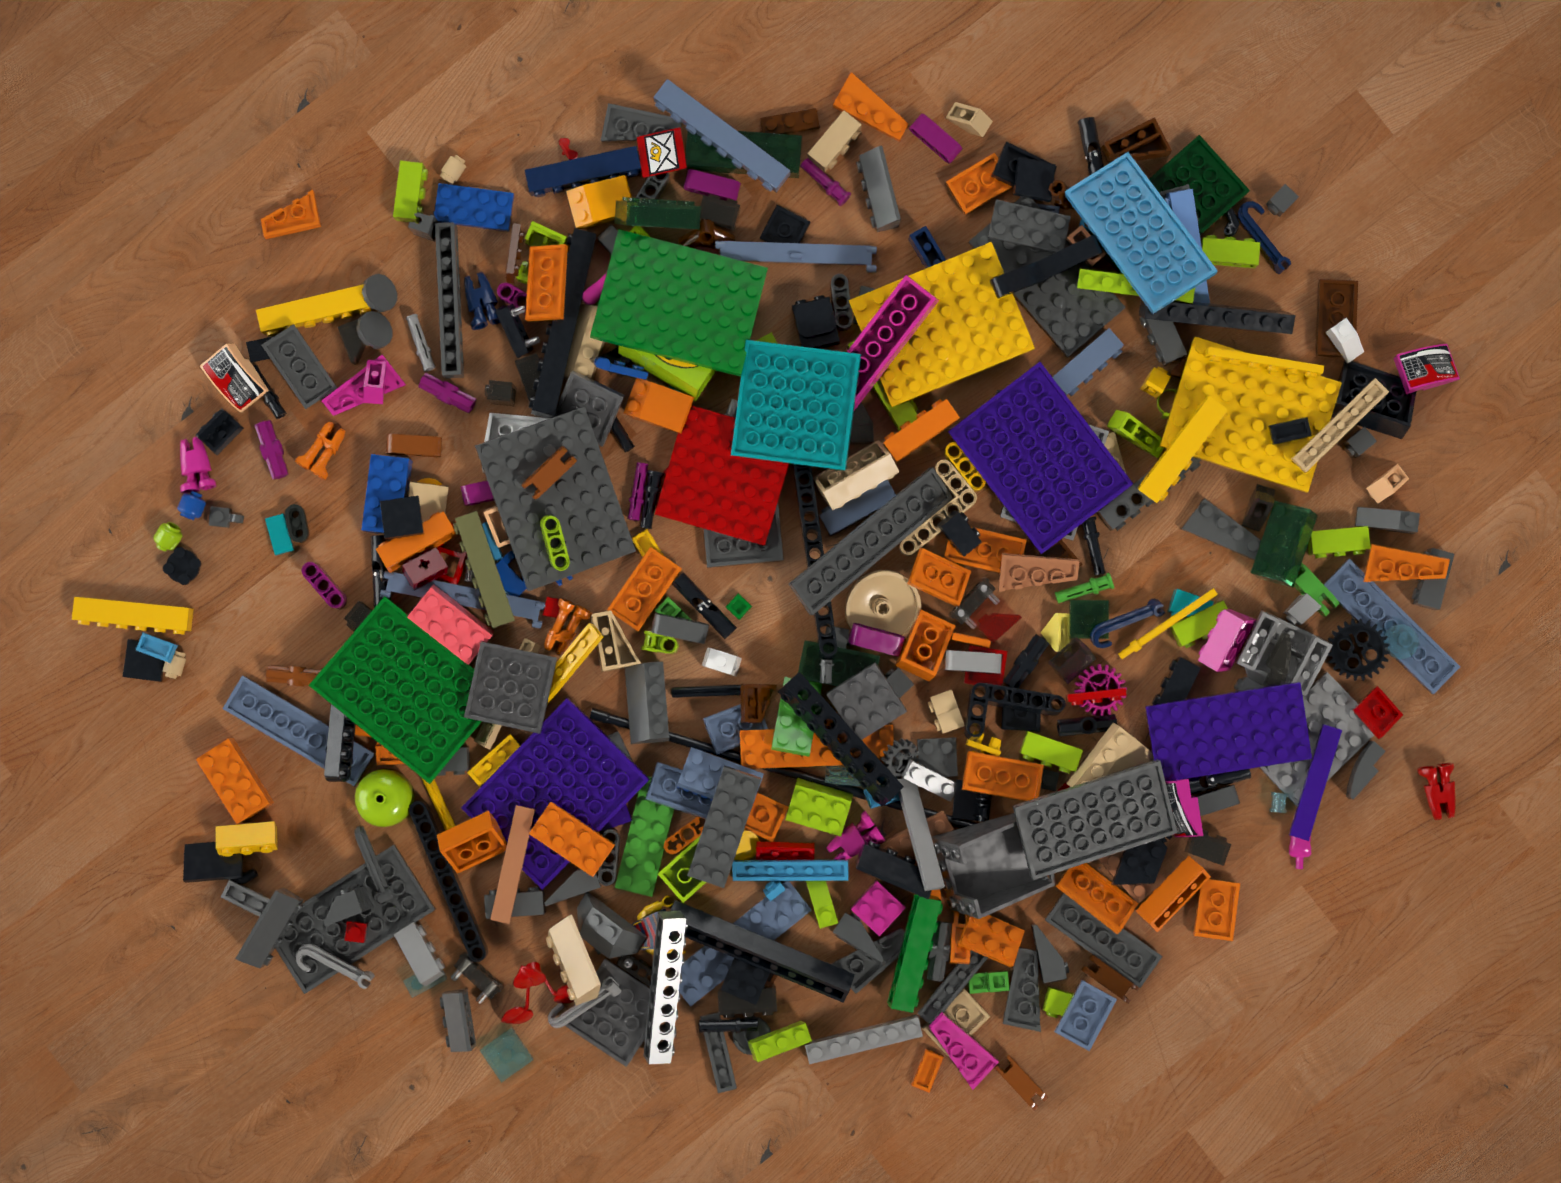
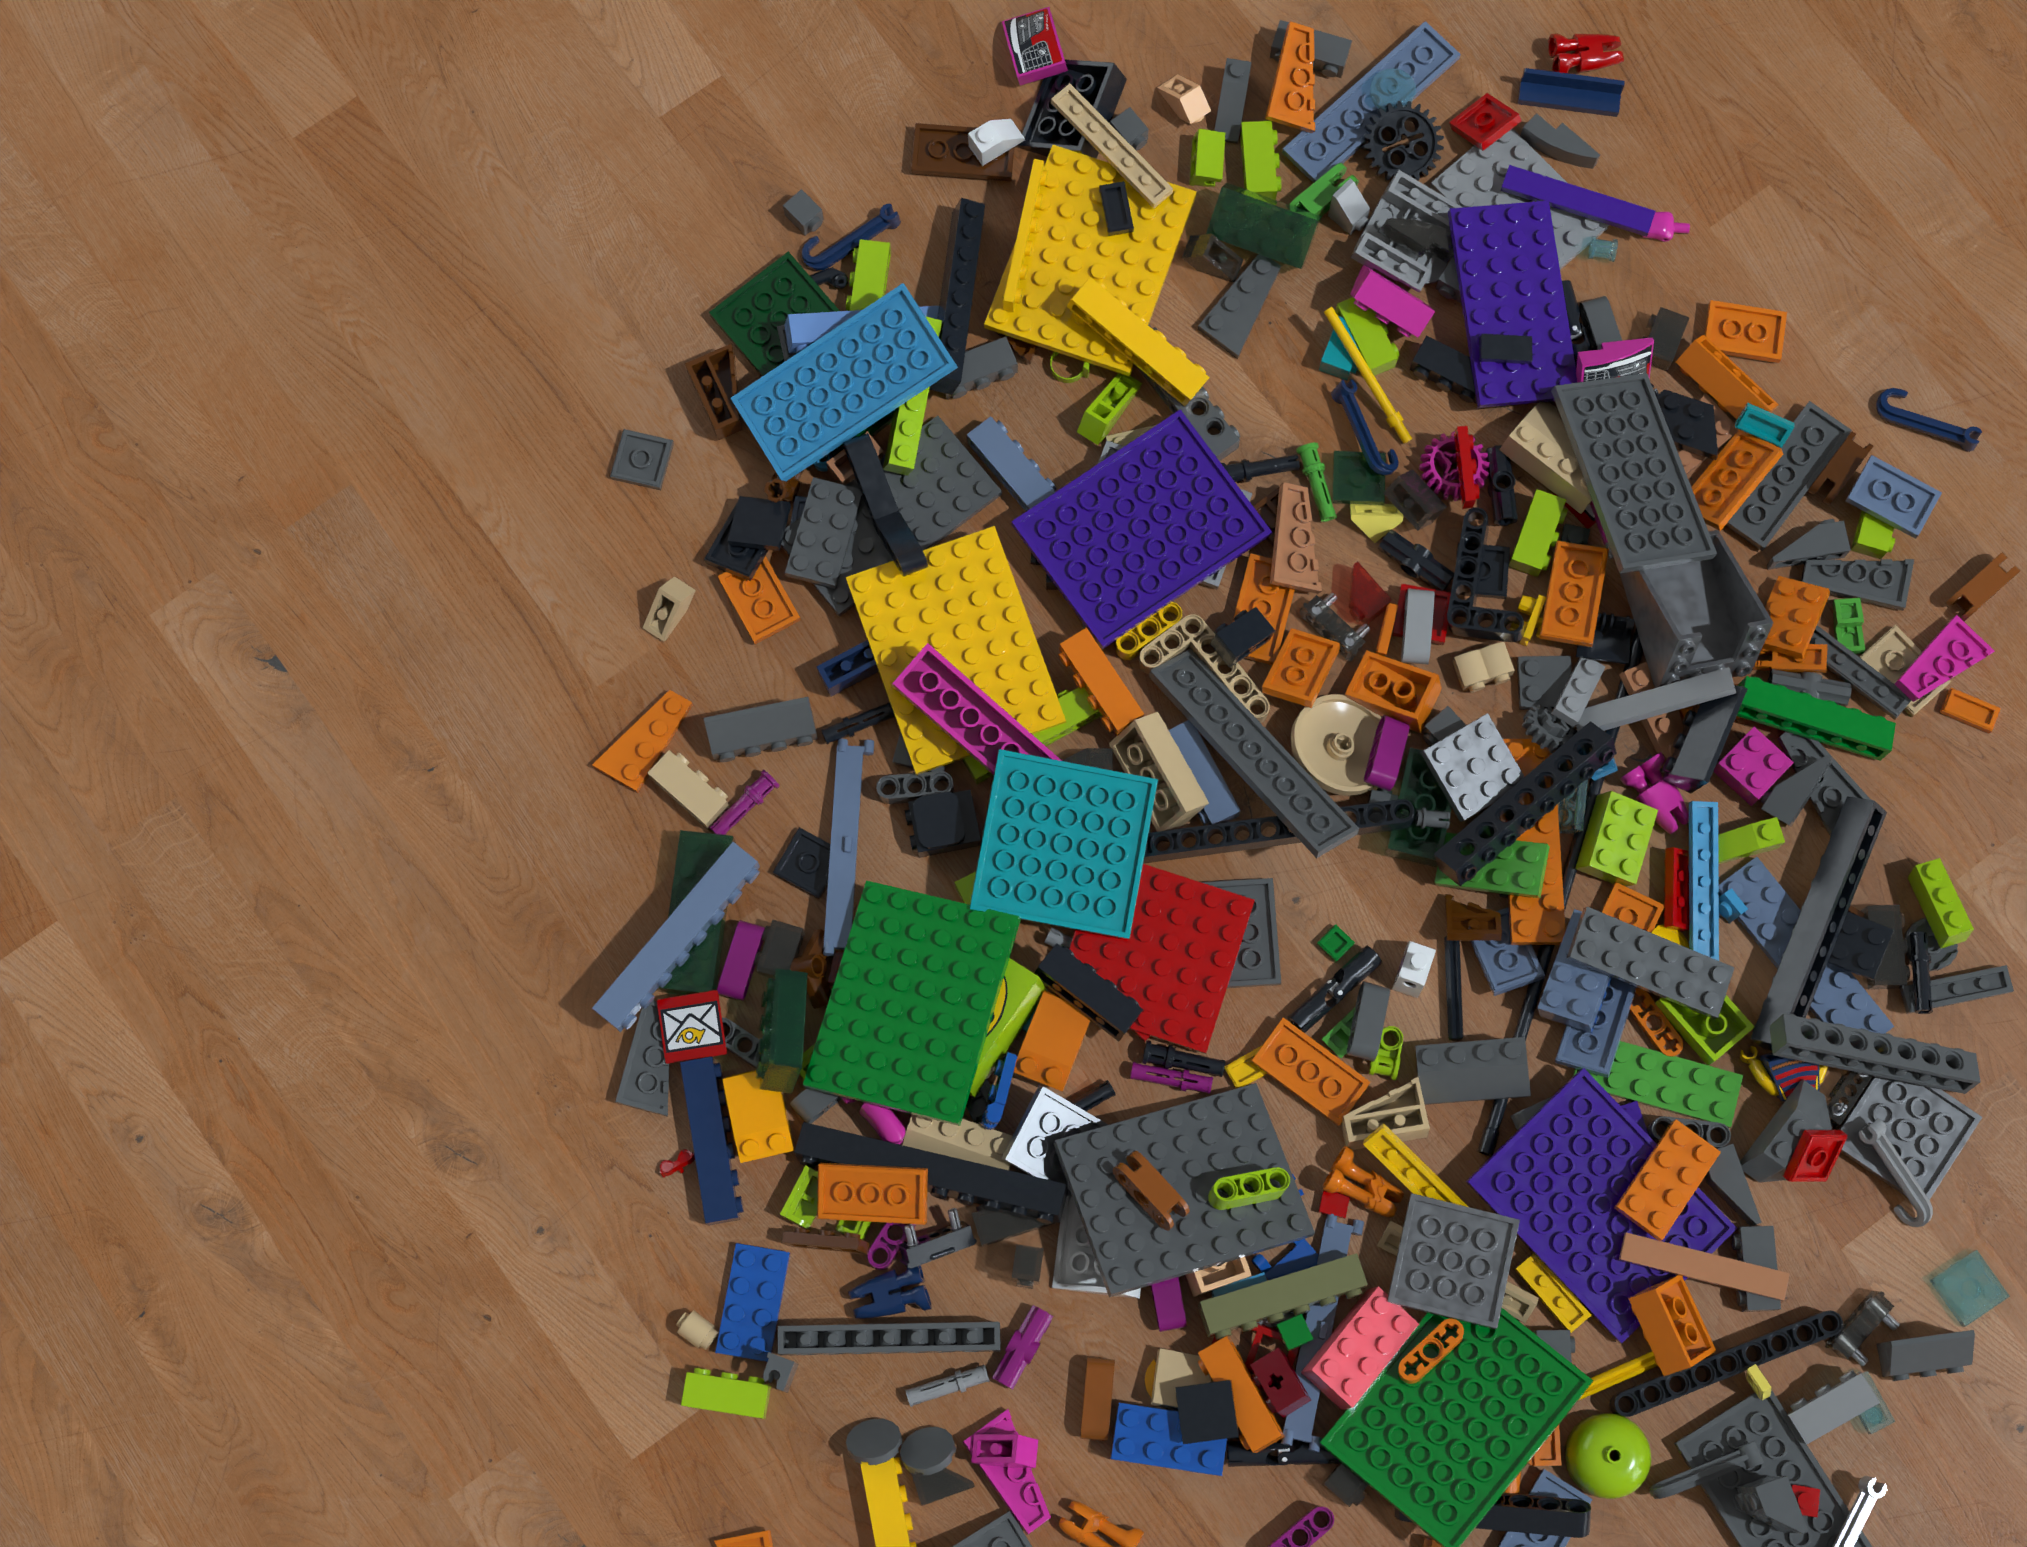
camera: 90 degrees left, 10 degrees down
(434, 665) = (1410, 1358): none -> orange beam
(434, 901) = (1758, 1382): none -> light yellow tile
(460, 578) = (1294, 1332): none -> green tile
(532, 976) = (1867, 1243): red plant -> none
(574, 961) = (1840, 1181): tan slope -> none
(596, 944) = (1815, 1155): none -> red tile
(691, 426) = (1088, 991): none -> black brick
(791, 122) = (657, 850): reddish brown plate -> none
(863, 1039) = (1932, 790): light grey brick -> none
(880, 241) = (830, 733): none -> black pin
(935, 138) = (692, 654): magenta beam -> none
(1083, 93) = (642, 459): none -> dark grey tile
(1090, 138) = (704, 451): black piece -> none
(1139, 920) = (1764, 425): none -> teal tile
(1148, 1043) = (1964, 437): none -> dark blue piece
(1155, 382) = (1042, 379): yellow slope -> none
(1189, 724) = (1505, 348): none -> black tile
(1339, 502) = (1207, 158): none -> lime hinge
(1405, 778) = (1570, 92): none -> dark blue panel

